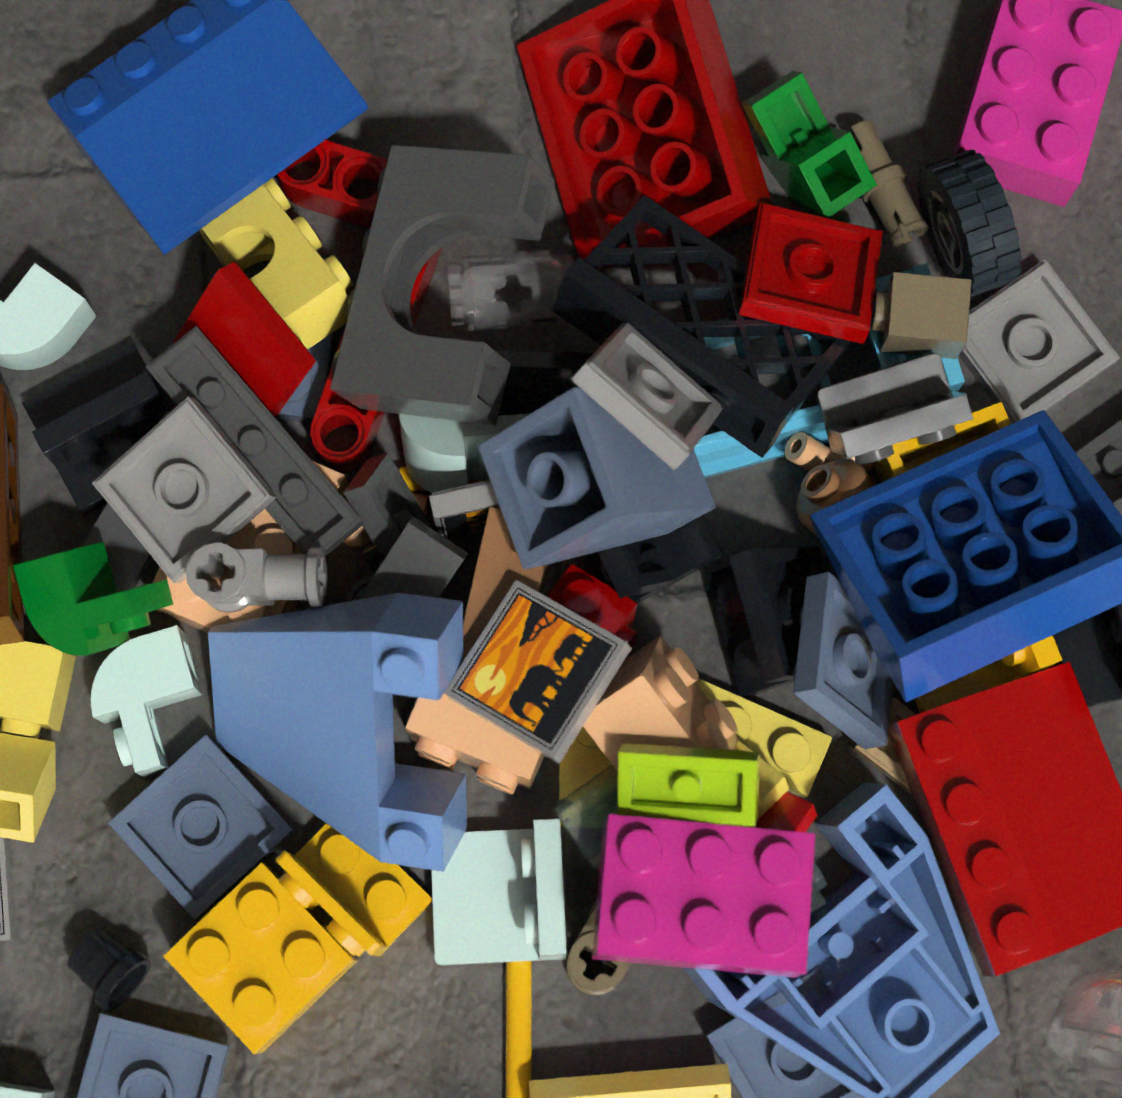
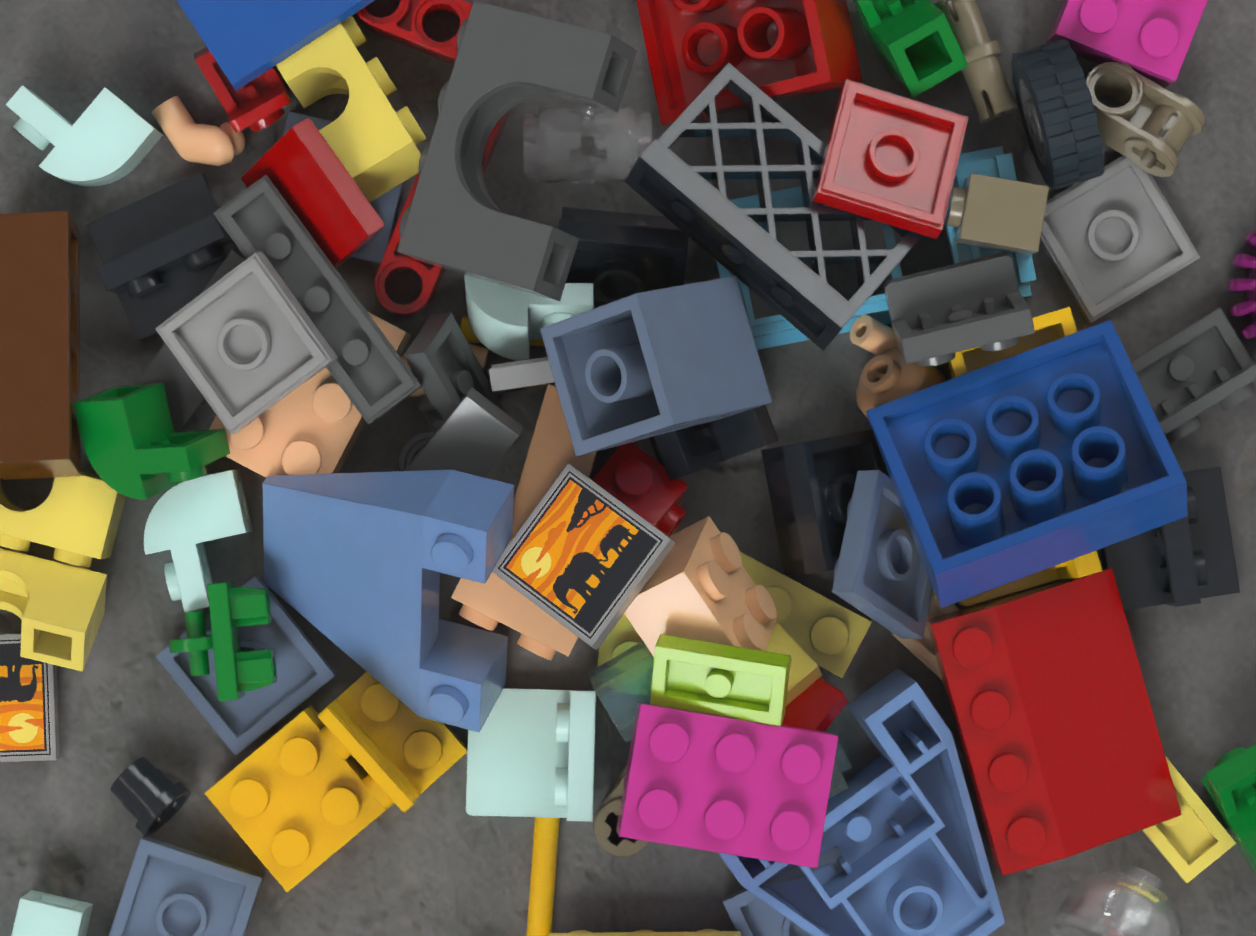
camera: 10 degrees right, 10 degrees up
(133, 315) = (198, 141): none -> light nougat arm
(179, 270) = (253, 105): none -> red bracket
(180, 766) = (234, 669): none -> green hips
(257, 577) = (315, 438): light grey connector -> none
(648, 394) = (712, 293): light grey tile -> none
(1049, 227) = (1143, 117): none -> dark tan piece

